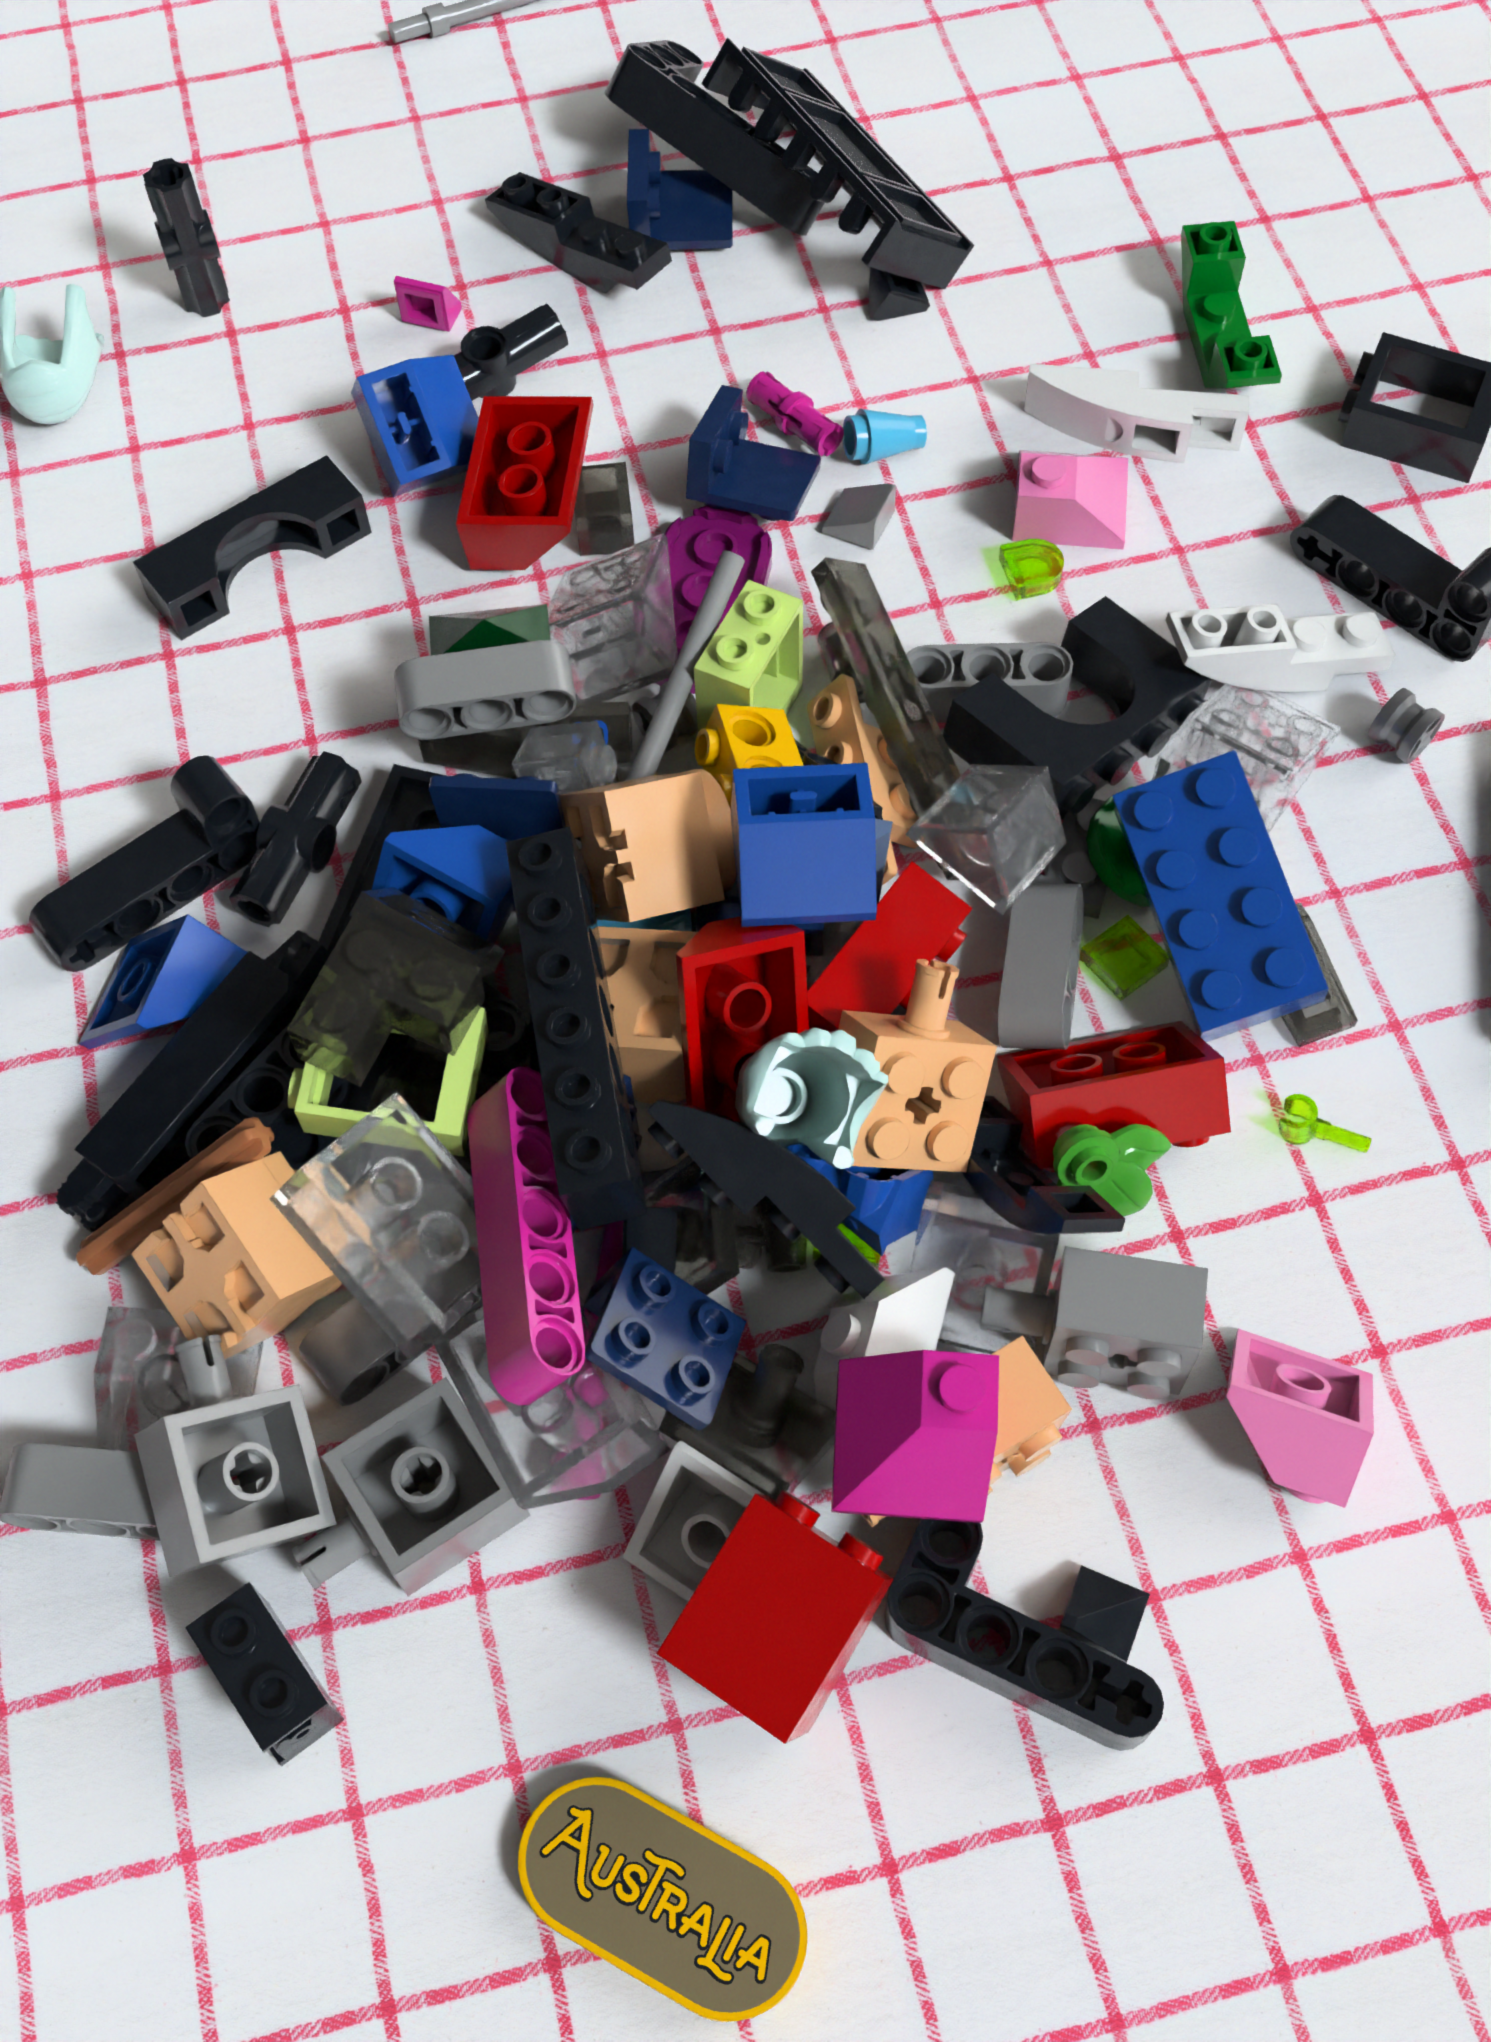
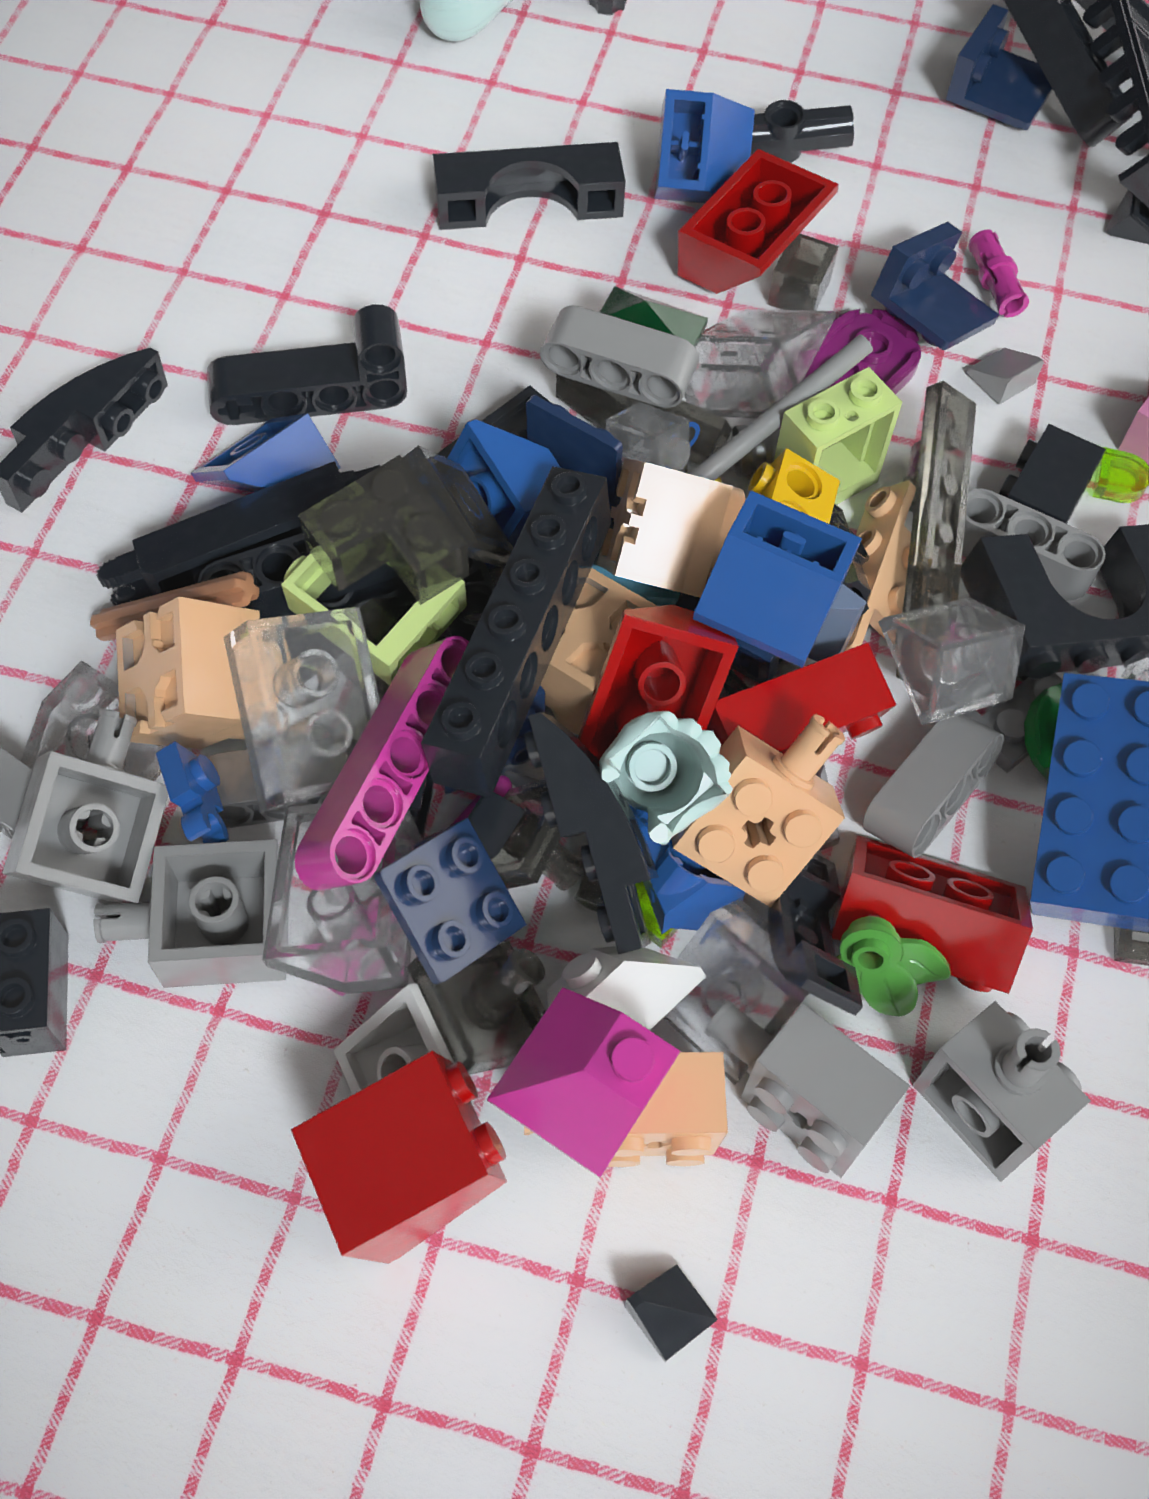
camera: 25 degrees right, 0 degrees up
(295, 839) = (427, 404): black piece -> none
(319, 1371) = (193, 787): none -> blue plate
(426, 303) = (764, 70): dark pink slope -> none
(568, 235) = (904, 68): black slope -> none
(663, 1899) = (201, 1322): dark tan tile -> none
(879, 435) = (1058, 319): medium azure cone -> none
(972, 597) = (1053, 473): none -> black brick
(1025, 1641) = (590, 1299): black beam -> none
(1124, 957) = (1008, 812): clear neon green tile -> none
(1283, 1226) = (1001, 1088): none -> light grey brick
(1302, 1132) = (1086, 1030): clear neon green hand -> none
(1302, 1416) = (927, 1250): bright pink slope -> none

